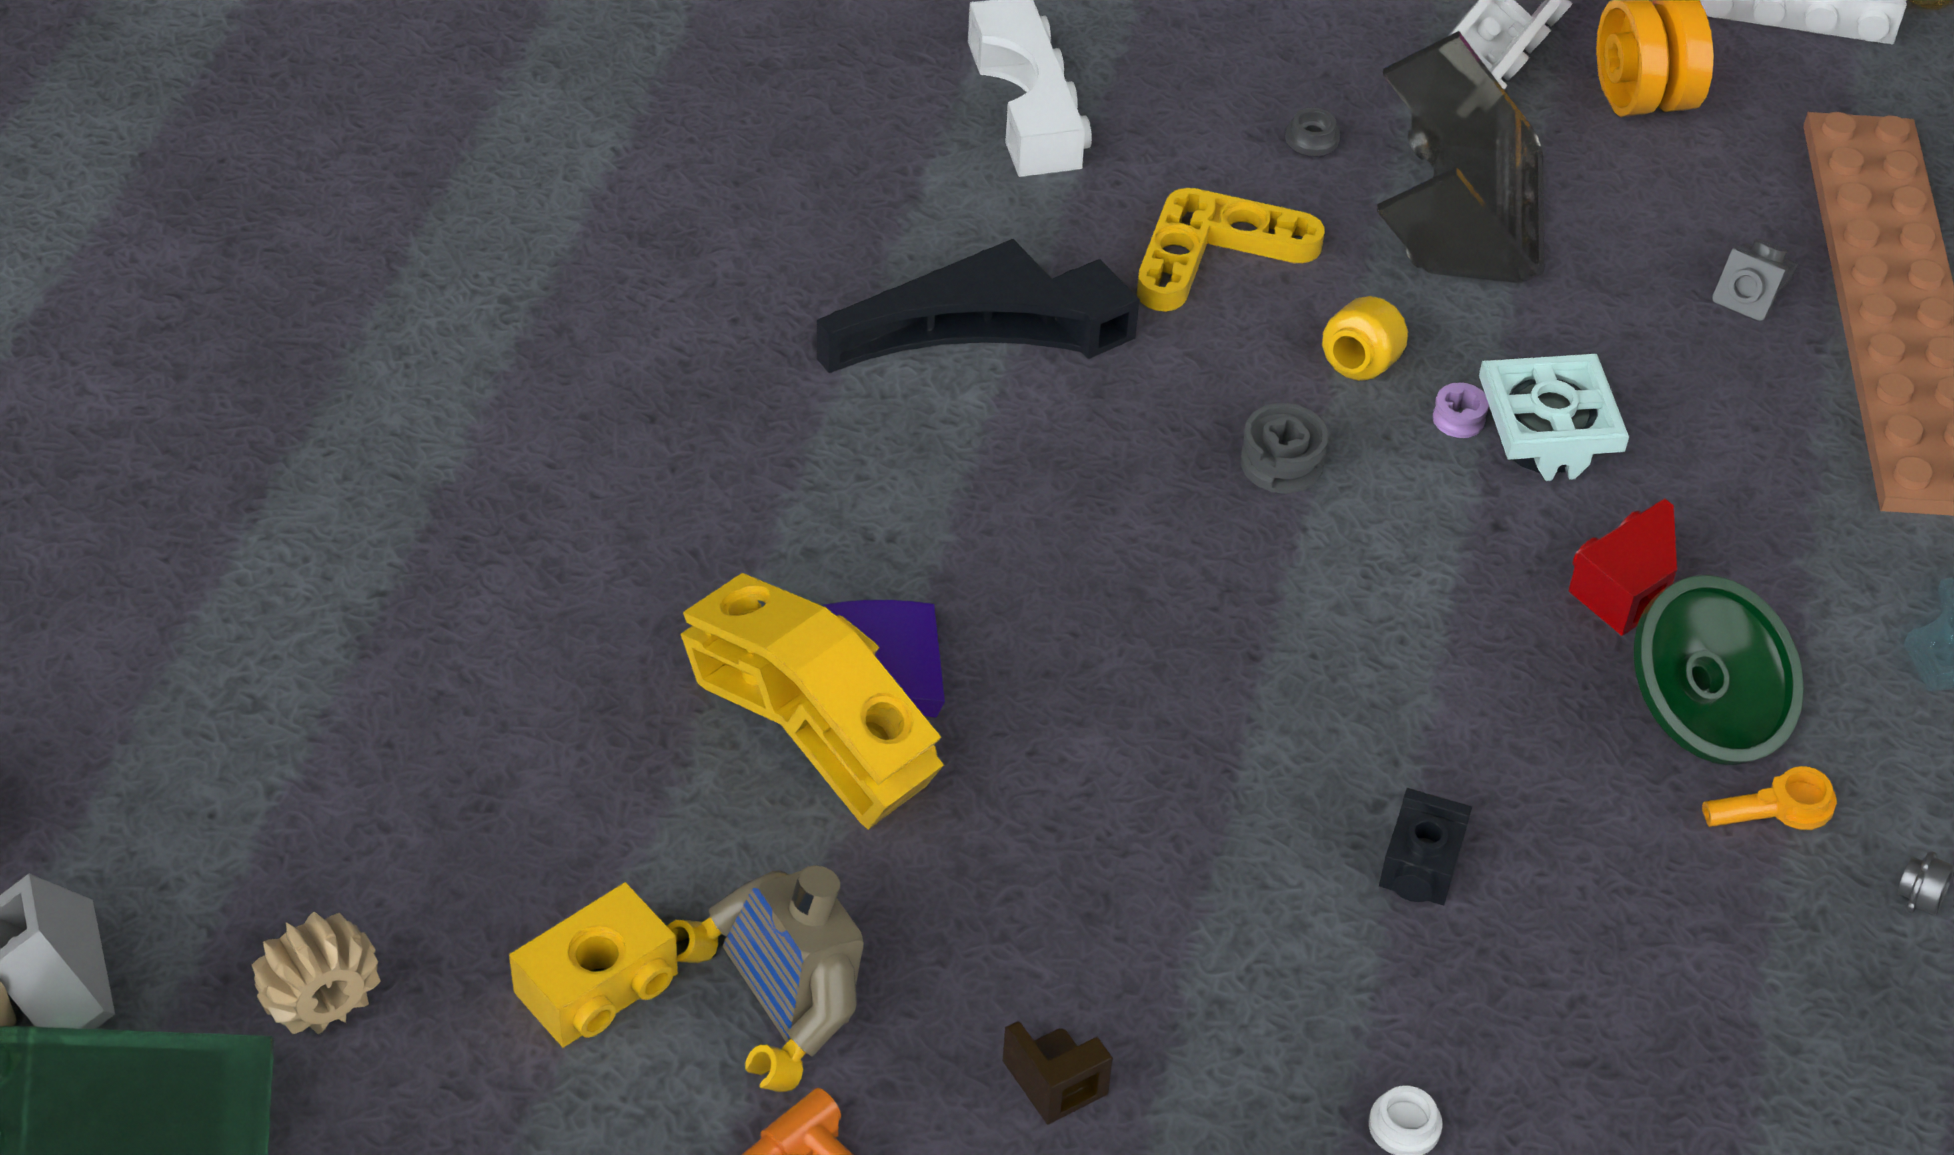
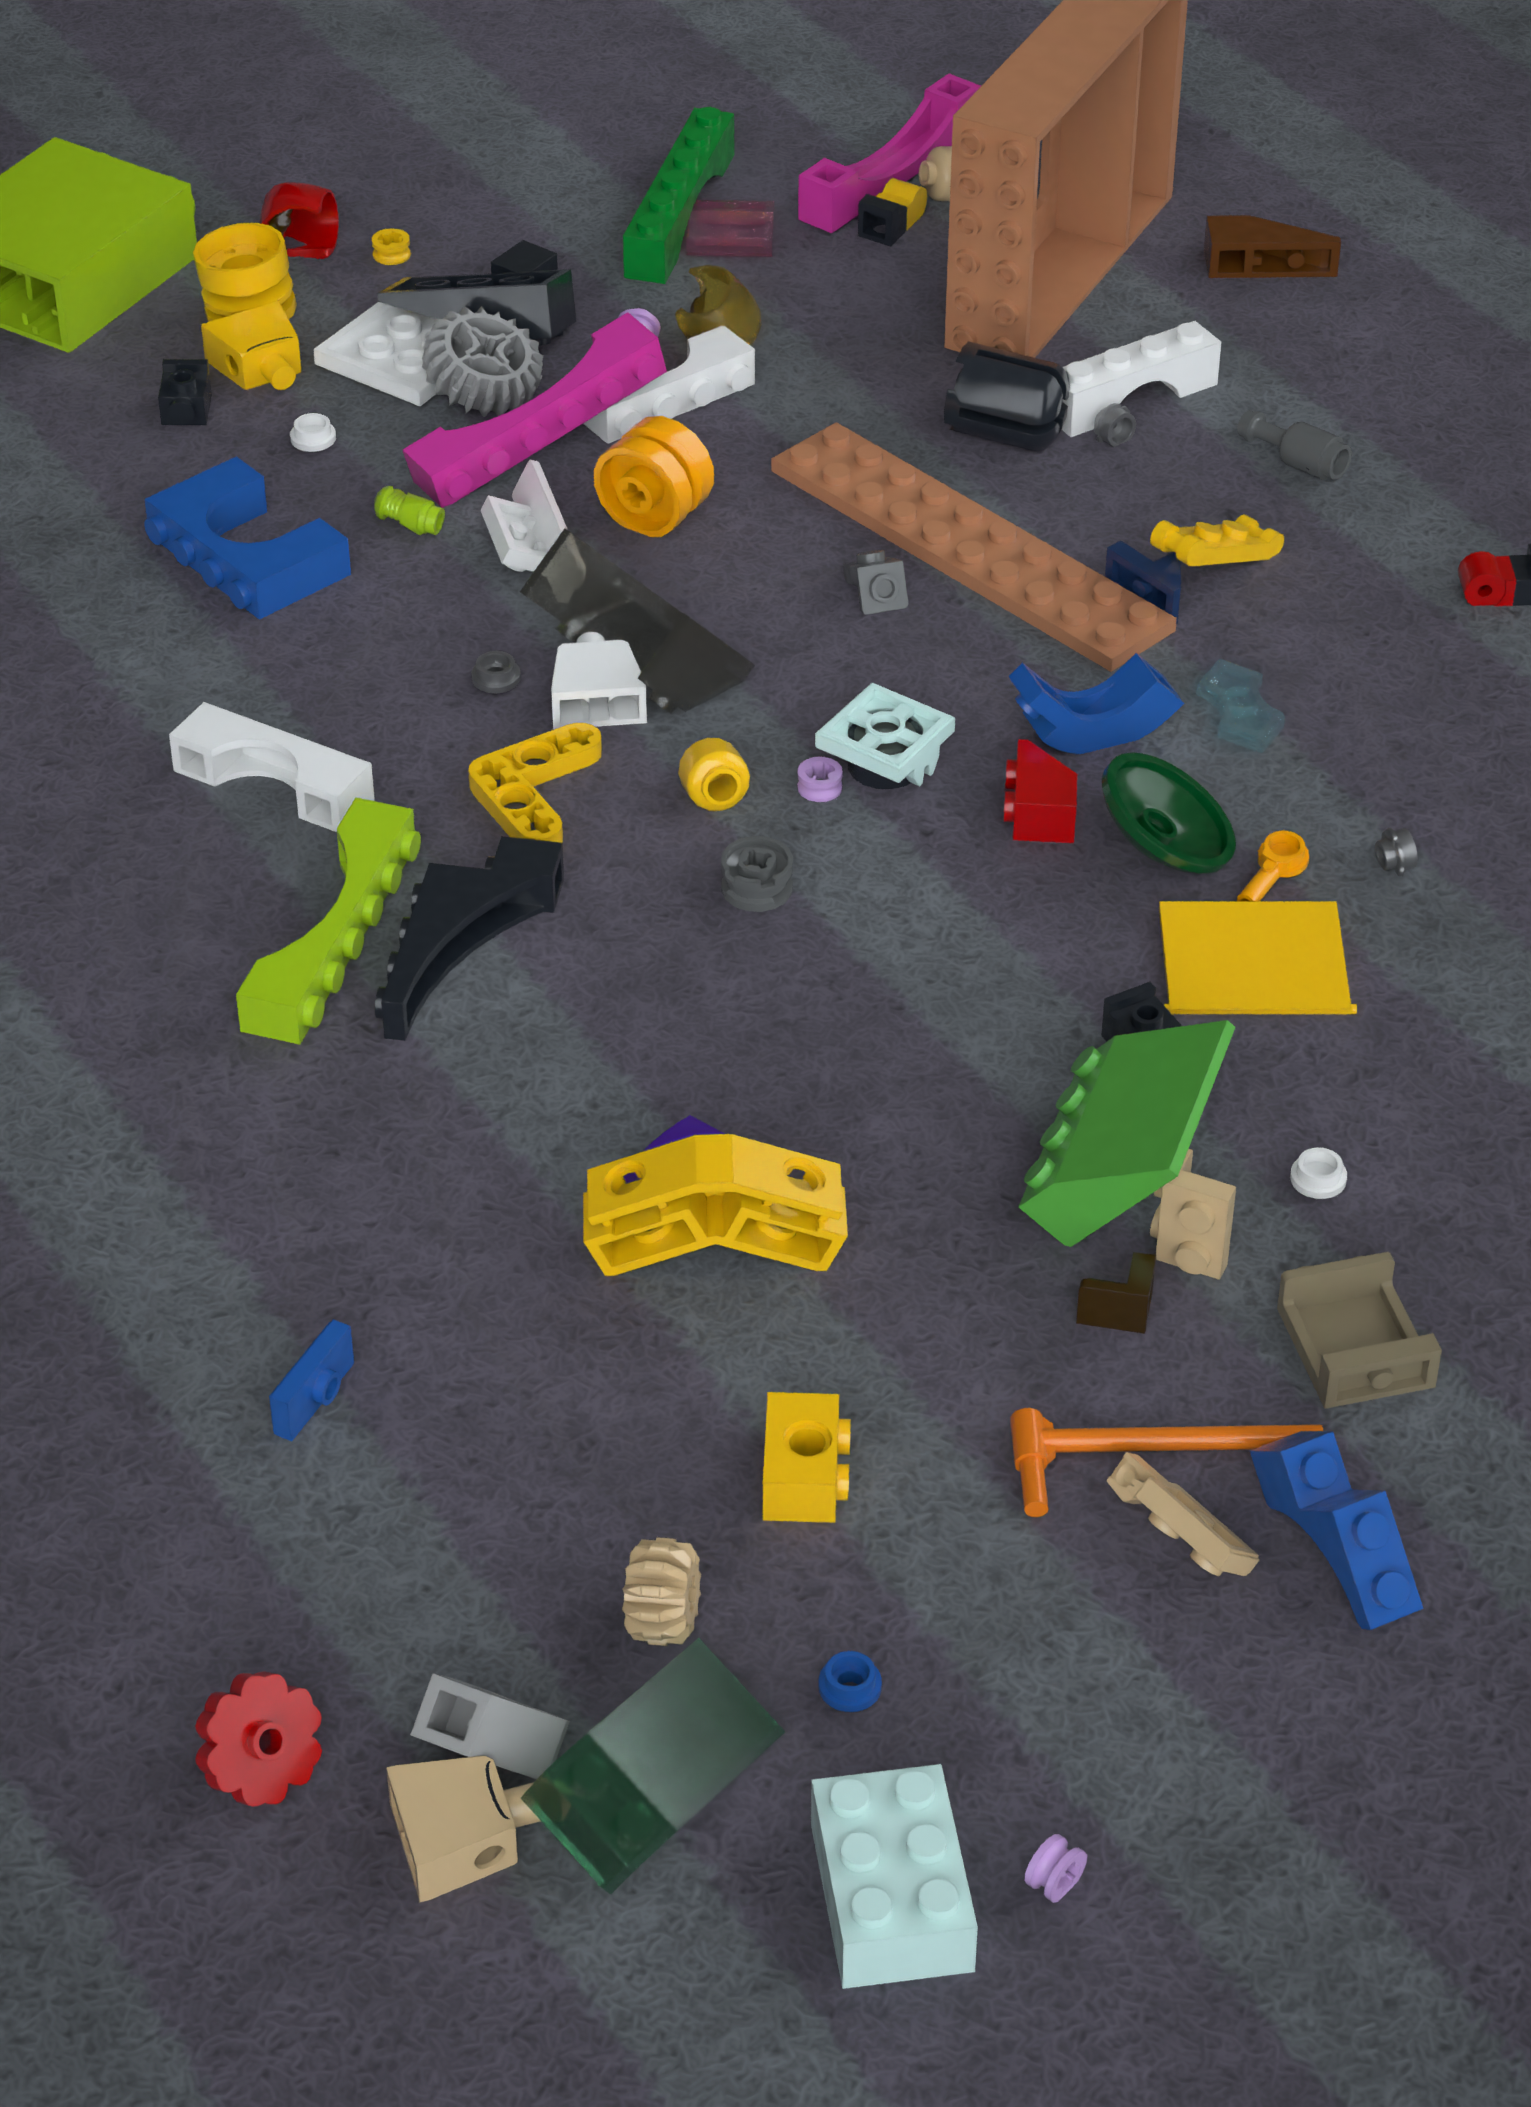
camera: 45 degrees left, 5 degrees down
(357, 576) = (312, 1380): none -> blue plate
(794, 954) = (912, 1350): dark tan torso -> none
(796, 262) = (290, 987): none -> lime arch
(1193, 1048) = (1194, 1222): none -> tan bracket
(1237, 907) = (1122, 1126): none -> bright green slope
(1351, 185) = (597, 683): none -> white torso
(1642, 873) = (1254, 957): none -> yellow piece
(1807, 543) = (1101, 717): none -> blue arch

